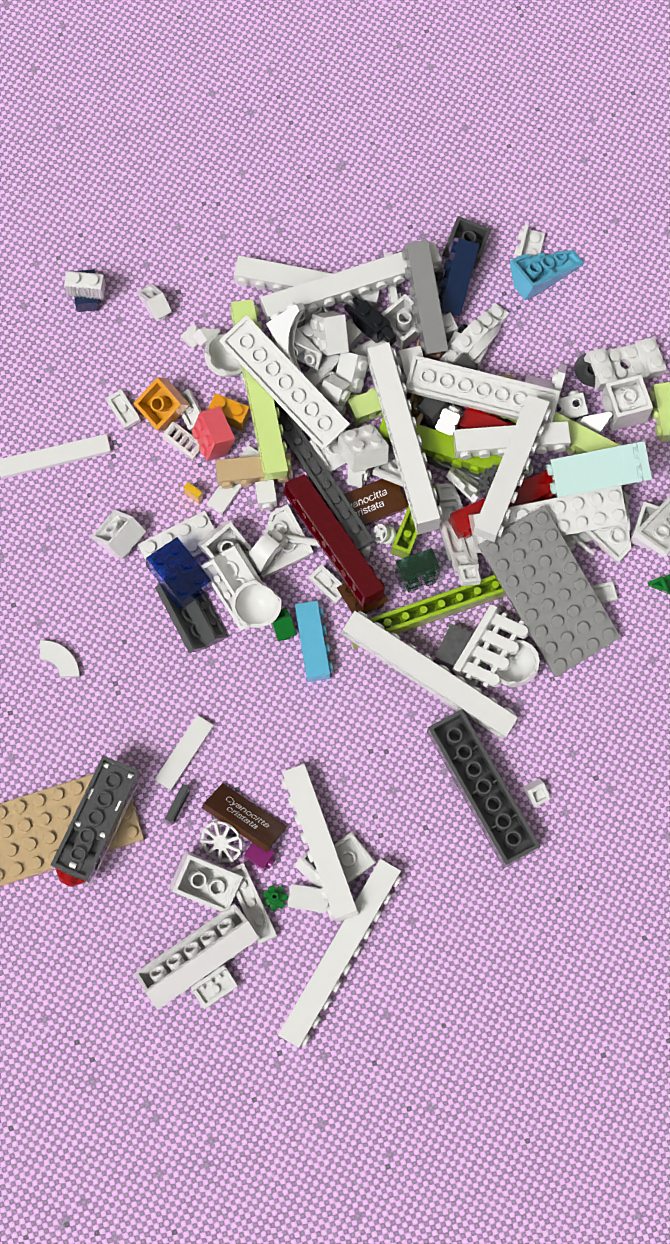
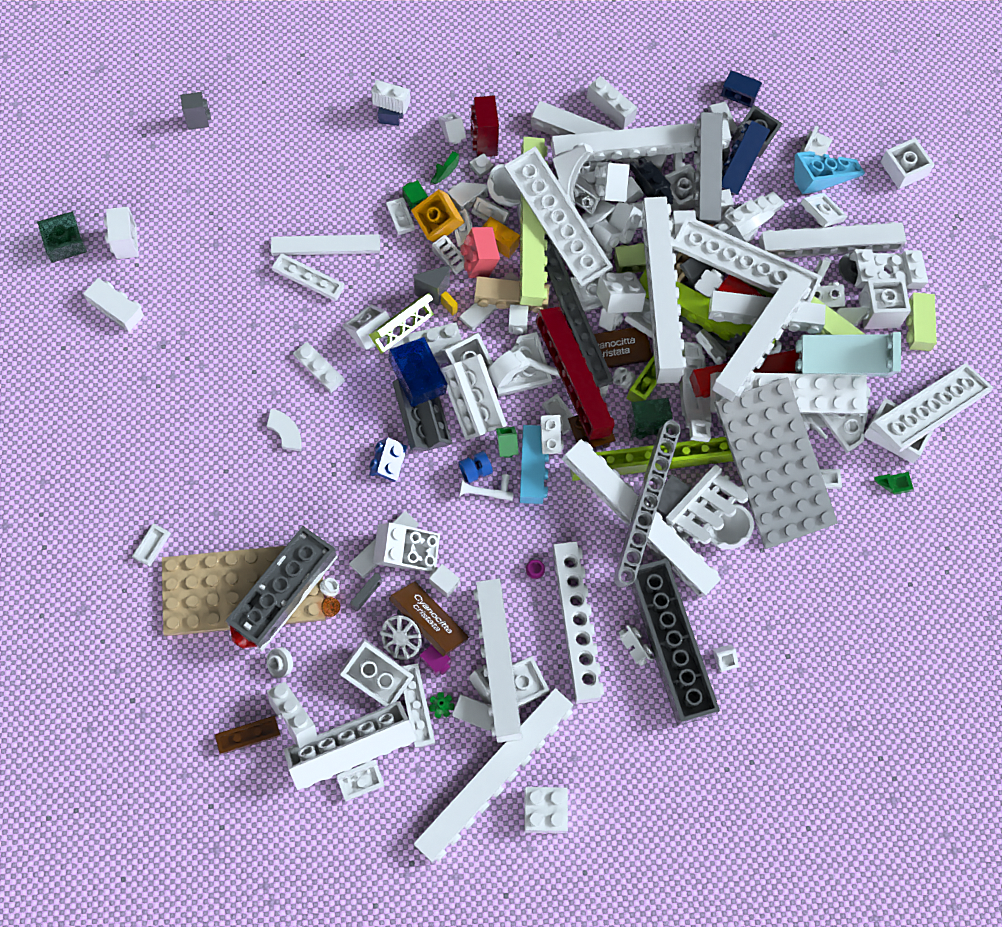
camera: 10 degrees right, 5 degrees down
(44, 494) = (308, 277): none -> white plate
(77, 586) = (319, 367): none -> white plate
(96, 967) = (247, 735): none -> reddish brown plate
(110, 891) = (279, 662): none -> white plate
(129, 933) = (289, 708): none -> white arch
(132, 384) = (413, 194): none -> green brick
(140, 807) = (329, 587): none -> white plate
(146, 826) = (330, 607): none -> clear orange plate
(147, 523) = (399, 320): none -> fence
(156, 352) = (444, 171): none -> green slope
(168, 667) = (387, 459): none -> bracket
(172, 477) = (432, 282): none -> dark grey slope
(185, 373) = (465, 194): none -> white slope
(188, 297) = (484, 126): none -> dark red brick
(202, 335) = (490, 162): white slope -> none
(206, 752) = (405, 547): none -> white slope
(210, 385) = (484, 209): none -> white plate
(250, 776) = (444, 580): none -> white brick
(251, 661) = (469, 469): none -> blue wheel
(255, 604) = (485, 415): white cylinder -> none
(289, 677) = (499, 494): none -> white piece
(312, 240) = (611, 102): none -> white brick
(323, 608) = (551, 434): none -> white bracket
(336, 745) = (535, 569): none -> magenta plate
(395, 975) = (545, 810): none -> white brick
(406, 856) = (582, 692): none -> white brick
(428, 231) = (723, 108): none -> white plate
(435, 671) = (643, 511): none -> light grey beam
(442, 197) = (741, 88): none -> dark blue brick
(444, 793) = (641, 651): none -> white hinge
(549, 313) = (823, 210): none -> white plate
(563, 344) = (833, 240): none -> white brick
(624, 245) = (907, 163): none -> white brick

